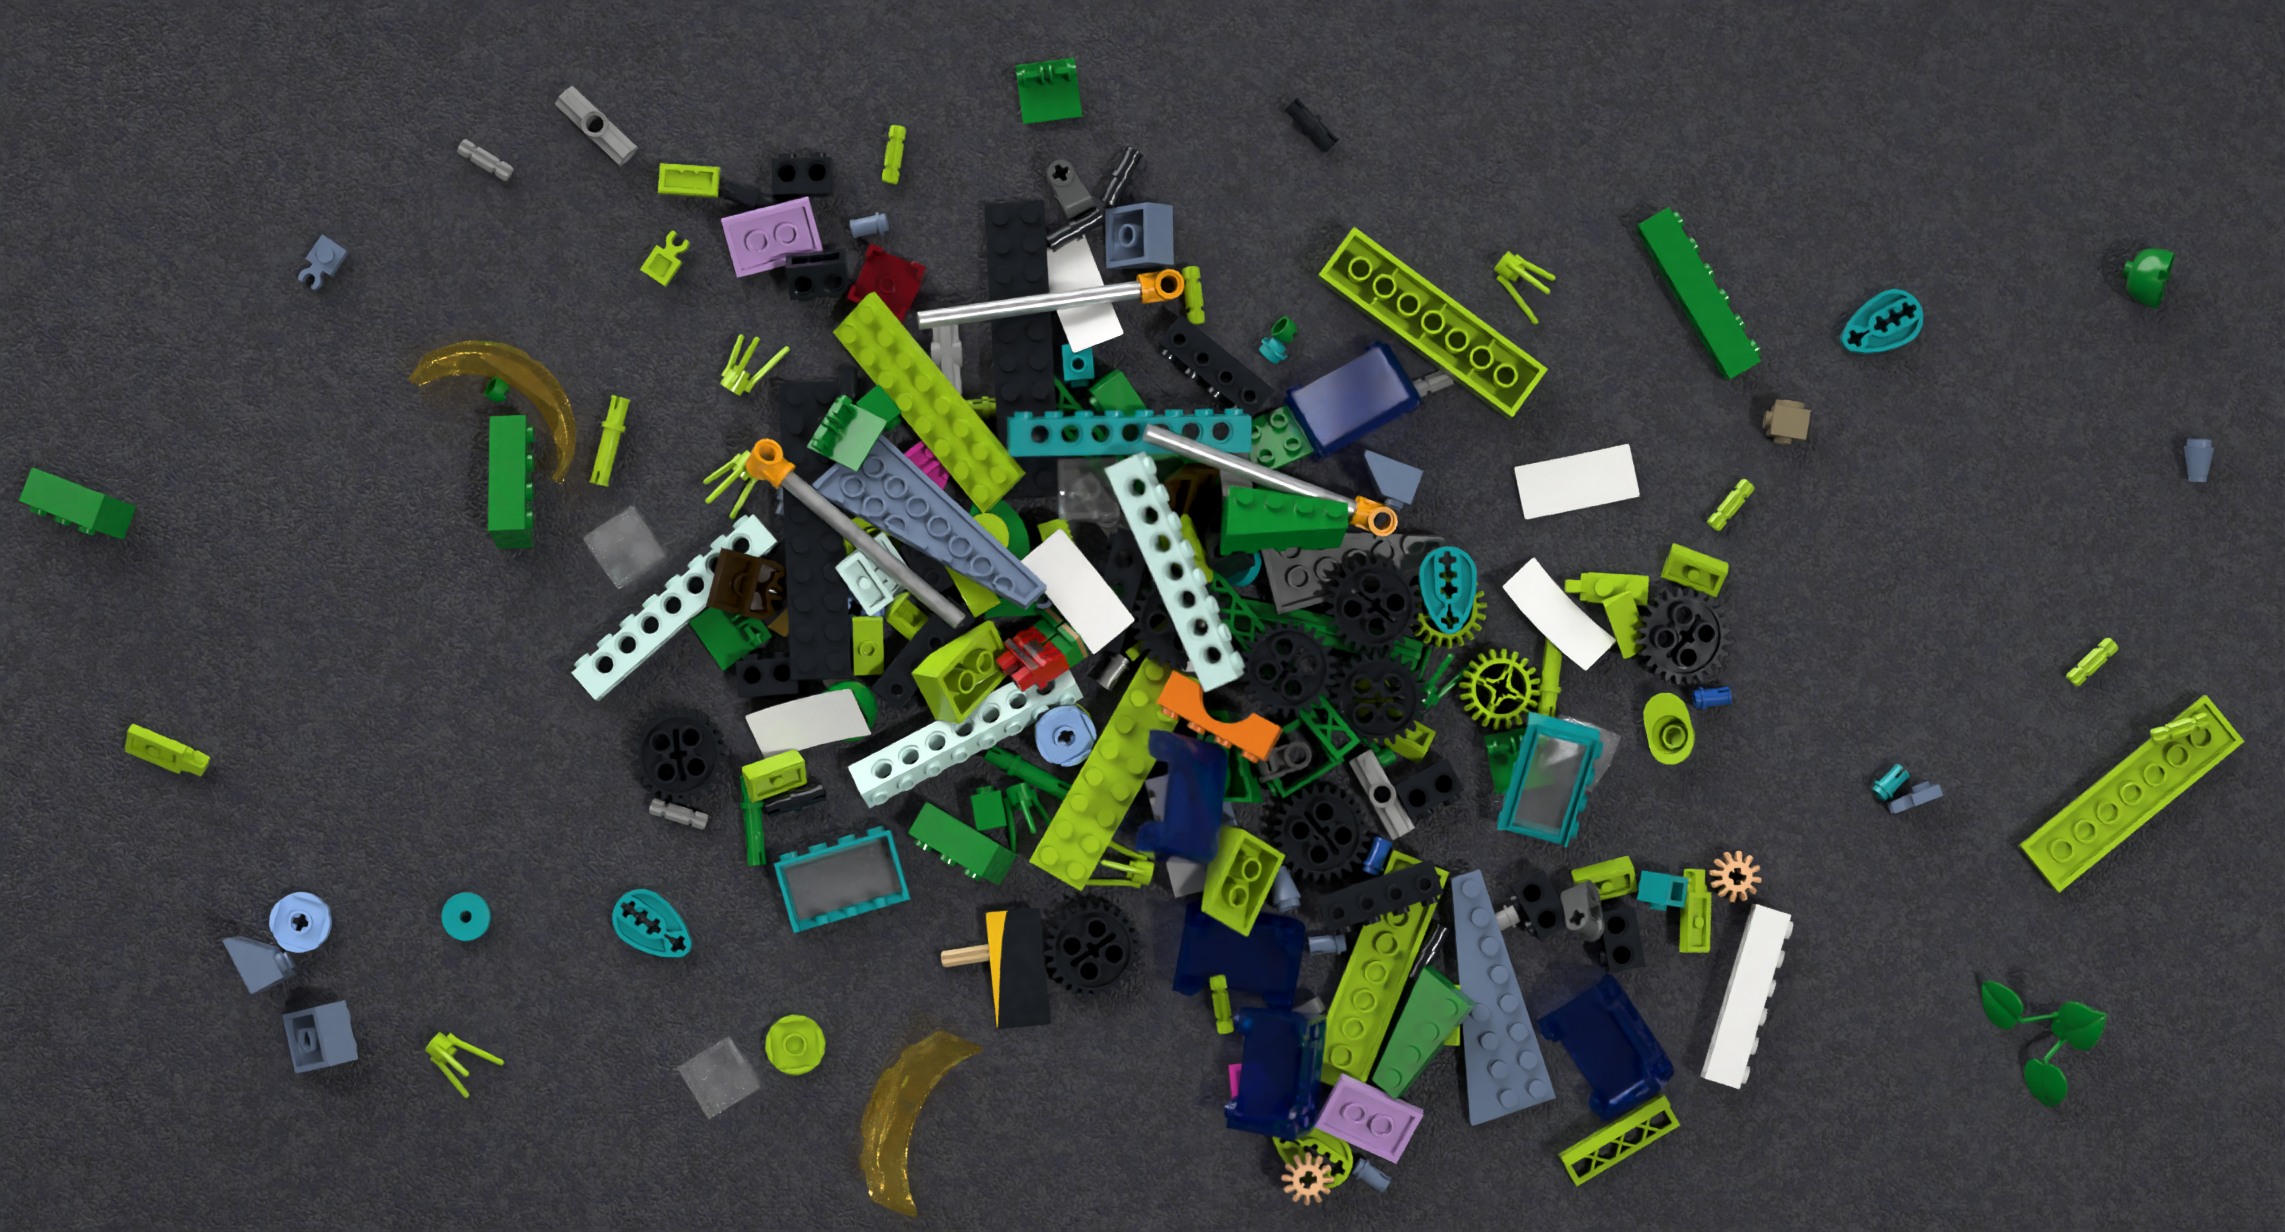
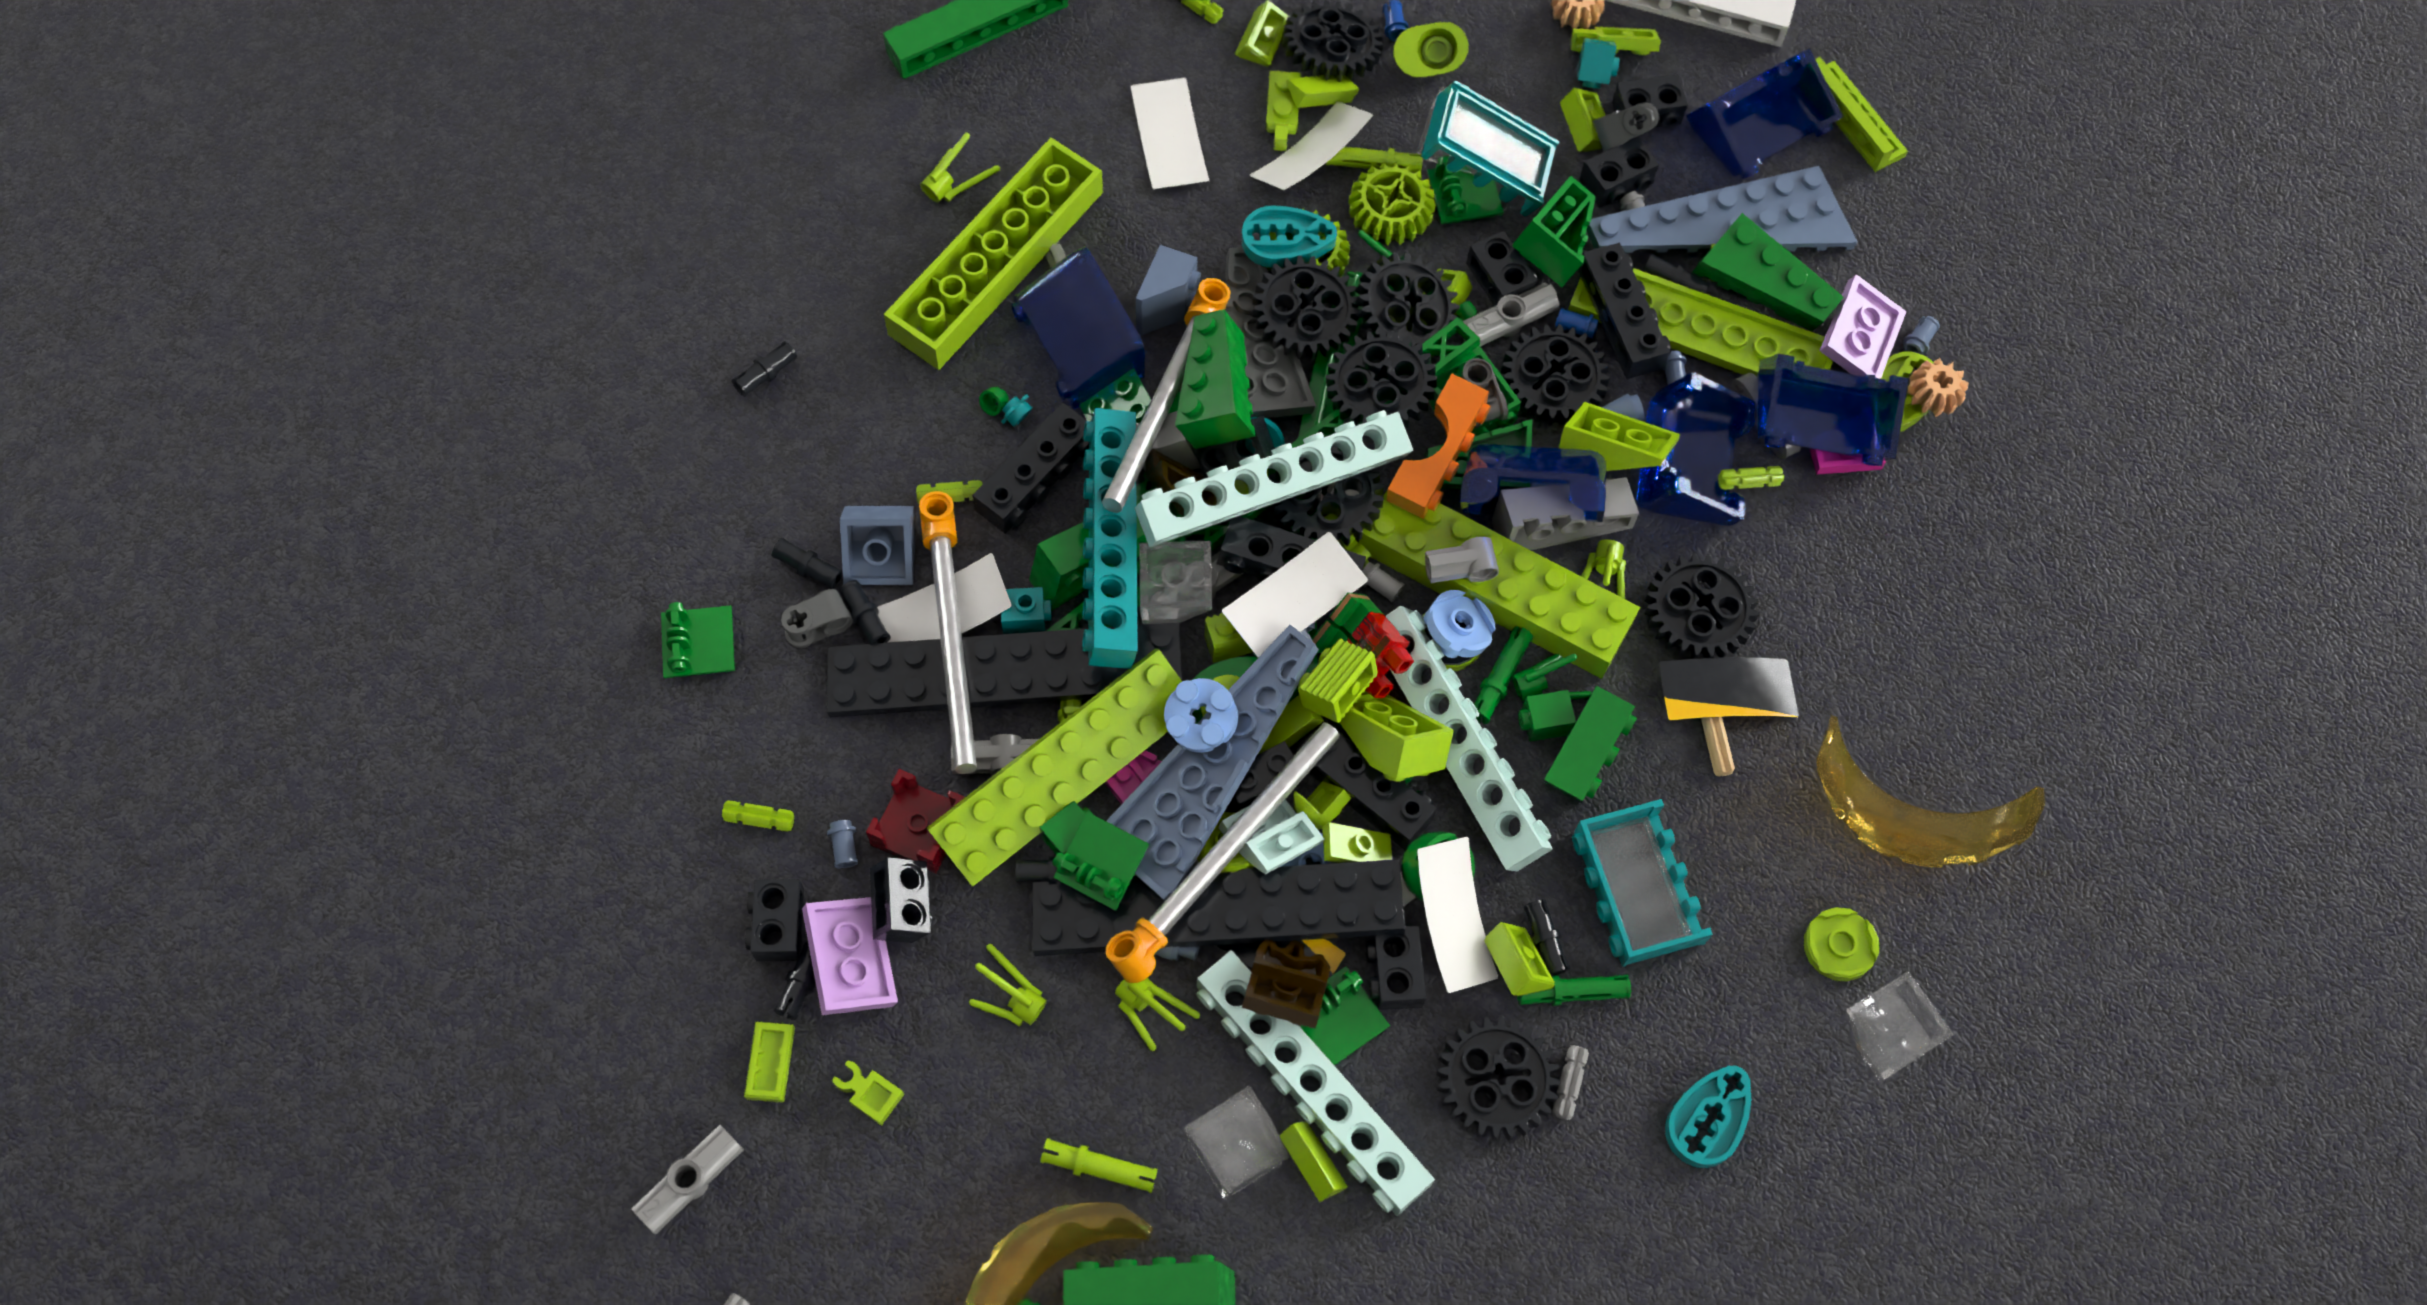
camera: 90 degrees left, 20 degrees down
(613, 608) = (1312, 1160): none -> lime slope
(955, 497) = (1211, 732): none -> light blue plate
(999, 625) = (1337, 680): none -> lime brick
(1113, 741) = (1471, 560): none -> light grey piece
(1463, 839) = (1558, 232): none -> green wedge

